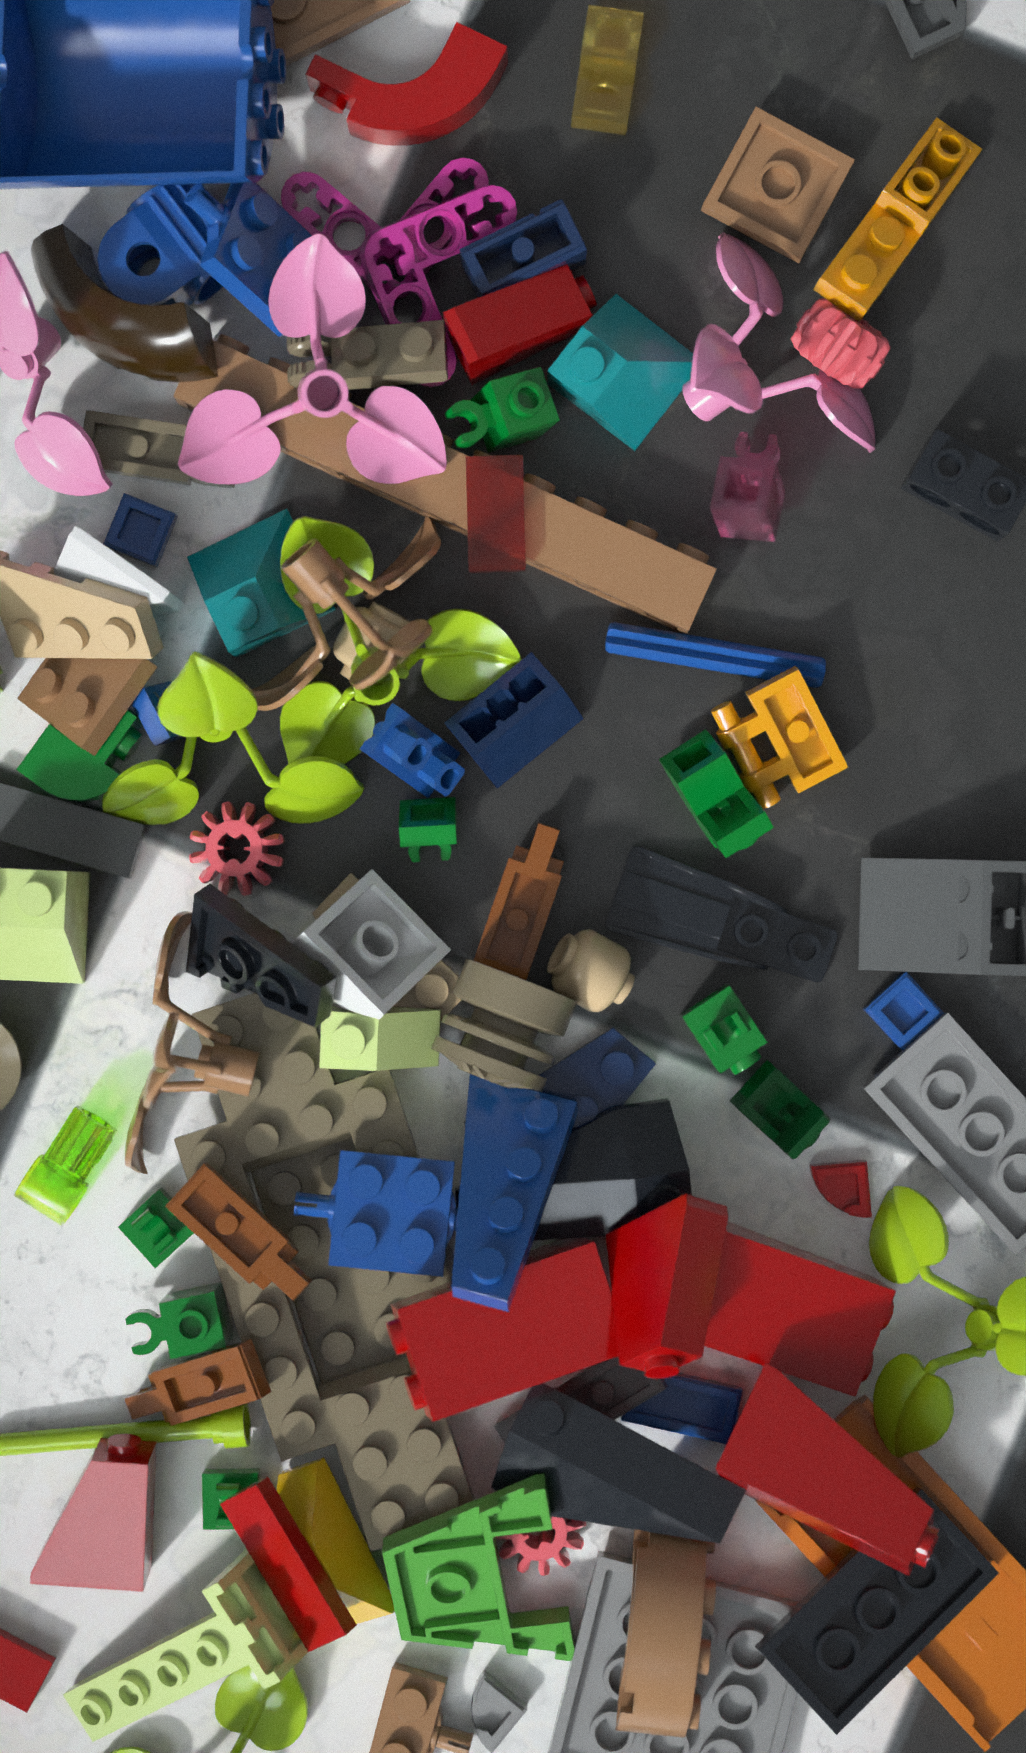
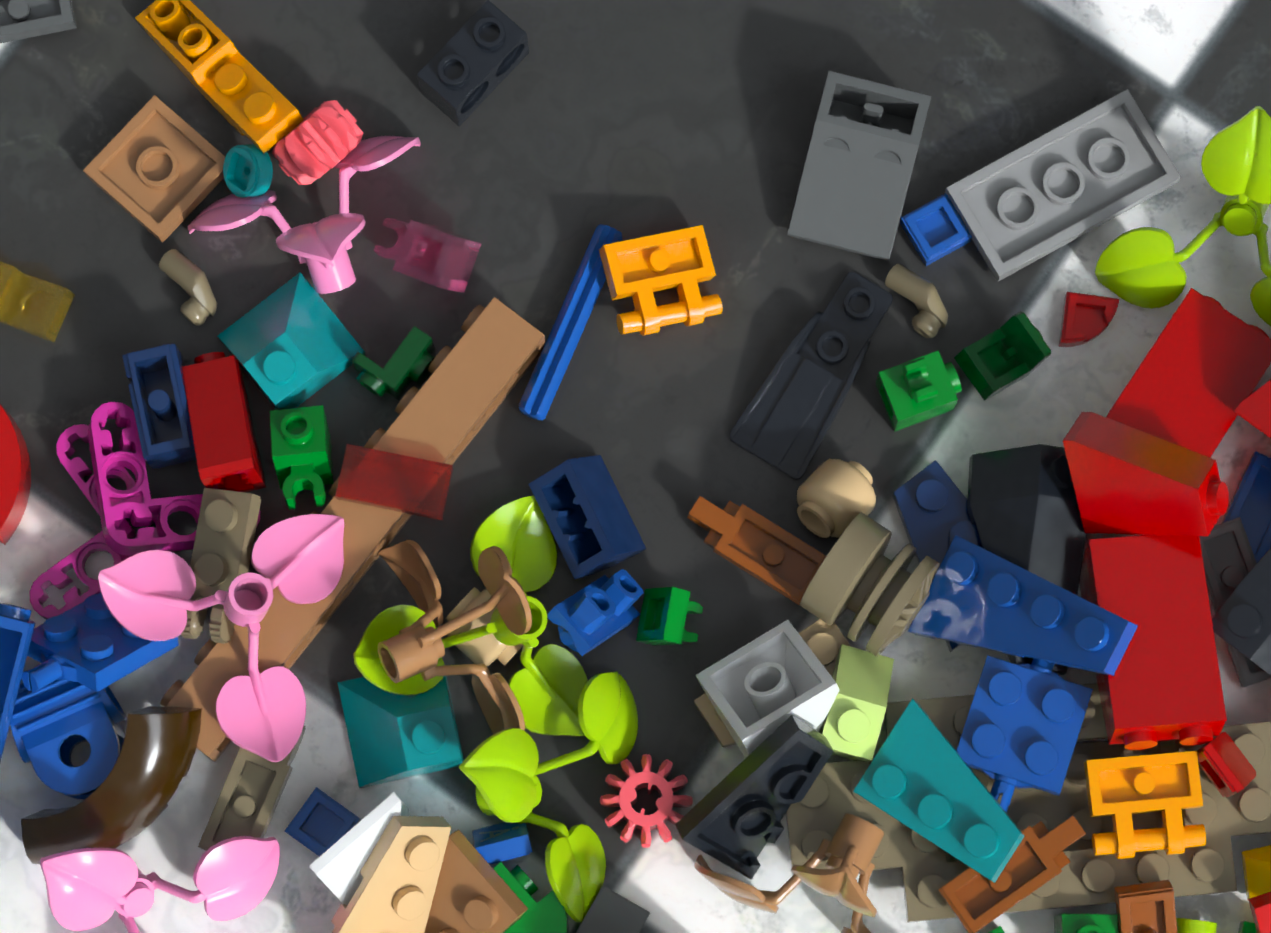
camera: 75 degrees left, 10 degrees down
(297, 1140) = (938, 796): none -> teal wing
(357, 1347) = (1140, 786): none -> light orange plate
(398, 1428) = (1225, 765): none -> red slope
(630, 498) = (406, 364): none -> dark green bracket
(665, 254) = (194, 282): none -> dark tan arm
(715, 794) = (700, 348): green brick -> none
(792, 278) = (247, 171): none -> teal tile
(828, 1013) = (924, 296): none -> dark tan arm

